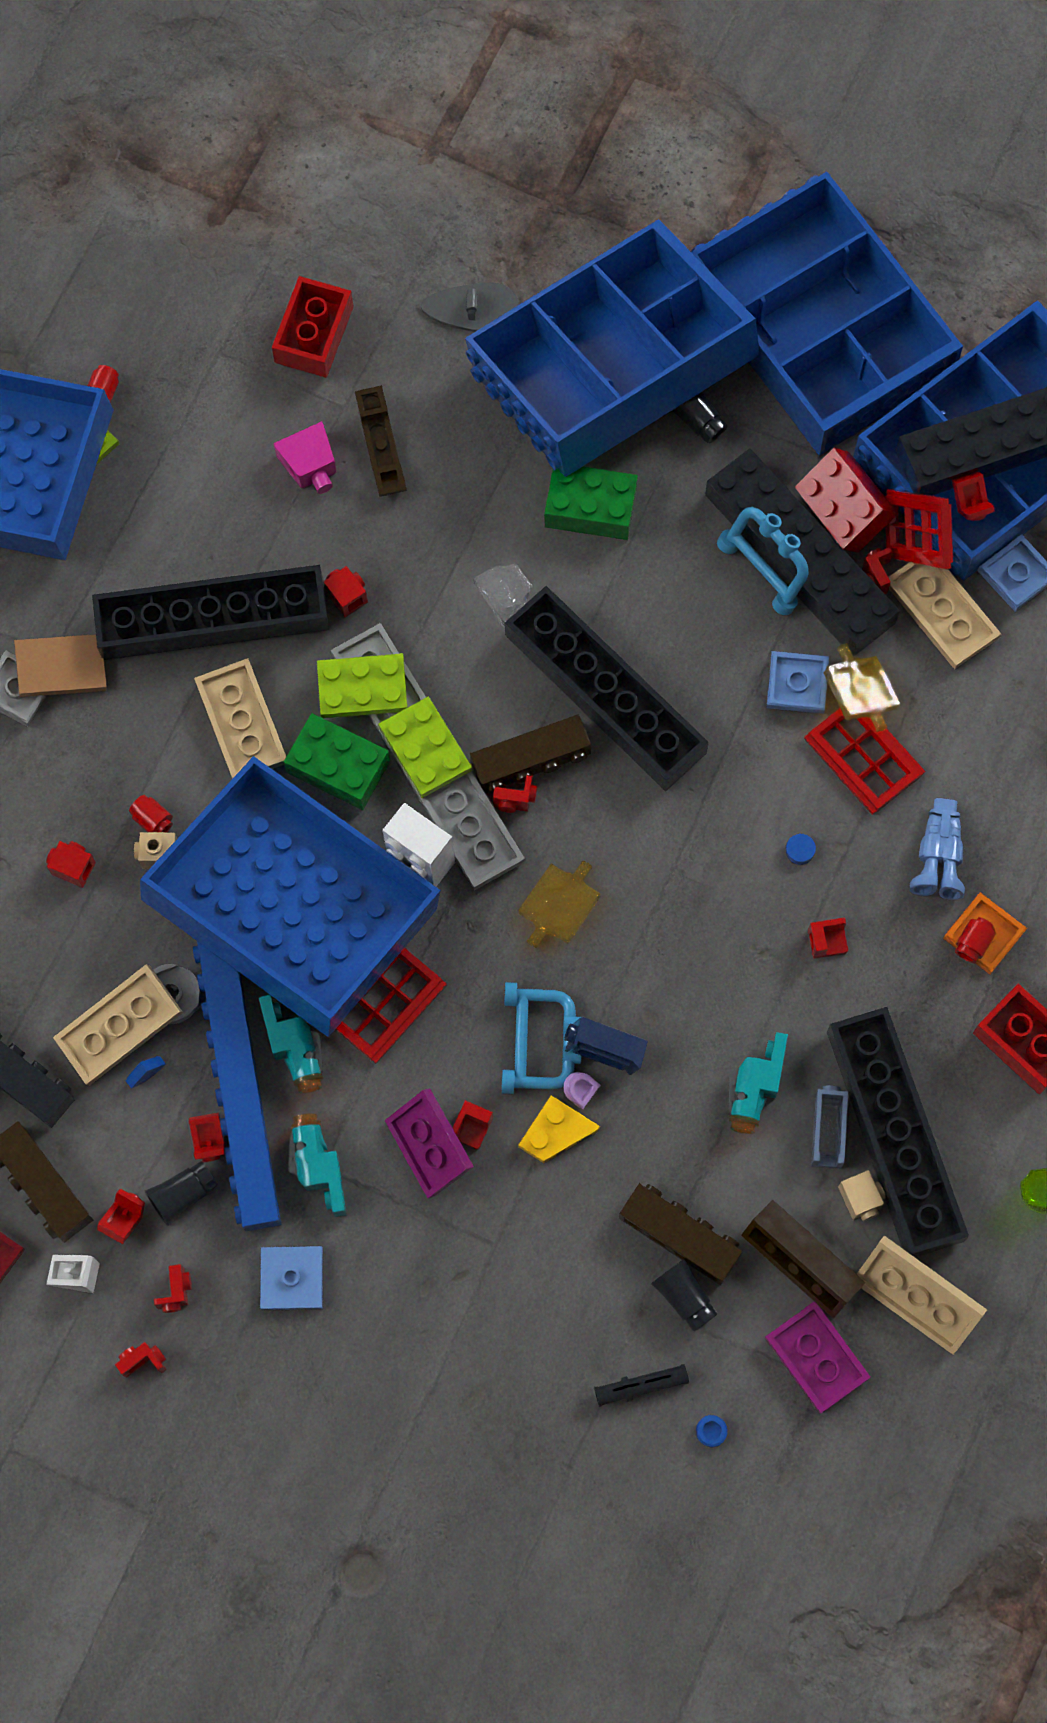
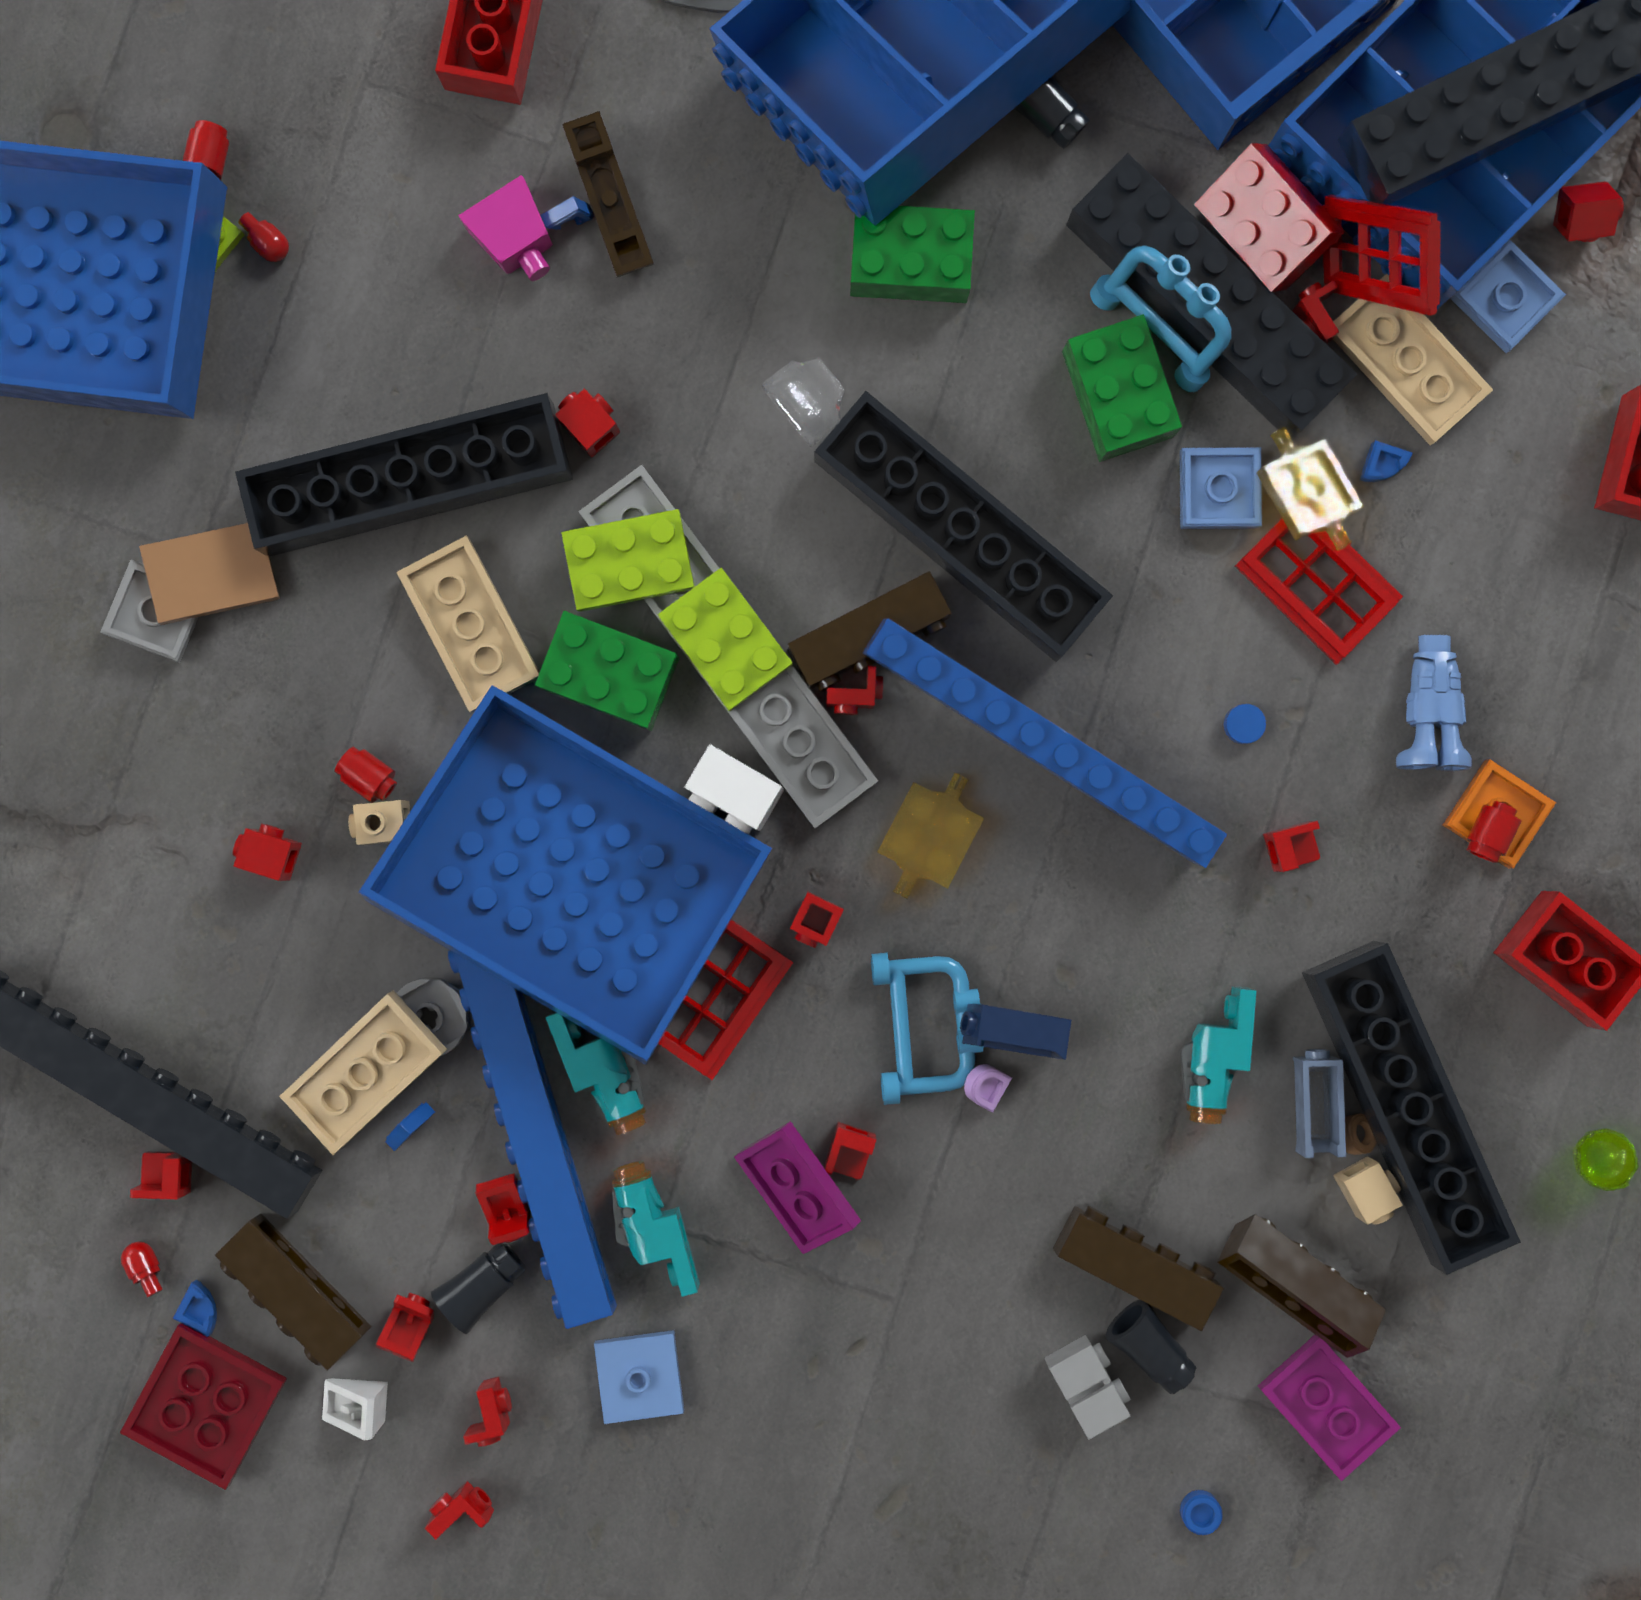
camera: 10 degrees left, 15 degrees up
(134, 447) = (265, 238): none -> red cylinder
(350, 449) = (566, 211): none -> blue tile
(467, 950) = (816, 920): none -> red brick
(556, 1130) = (960, 1144): yellow wing -> none
(633, 1320) = (1087, 1387): none -> light grey piece
(641, 1385) = (1106, 1467): black pin -> none
(648, 840) = (1044, 743): none -> blue brick
(731, 606) = (1121, 388): none -> green brick
(851, 1160) = (1353, 1145): none -> medium nougat piece
(920, 677) = (1383, 462): none -> blue tile
(920, 1295) = (1458, 1319): tan plate -> none
(972, 497) = (1455, 200): red bracket -> none

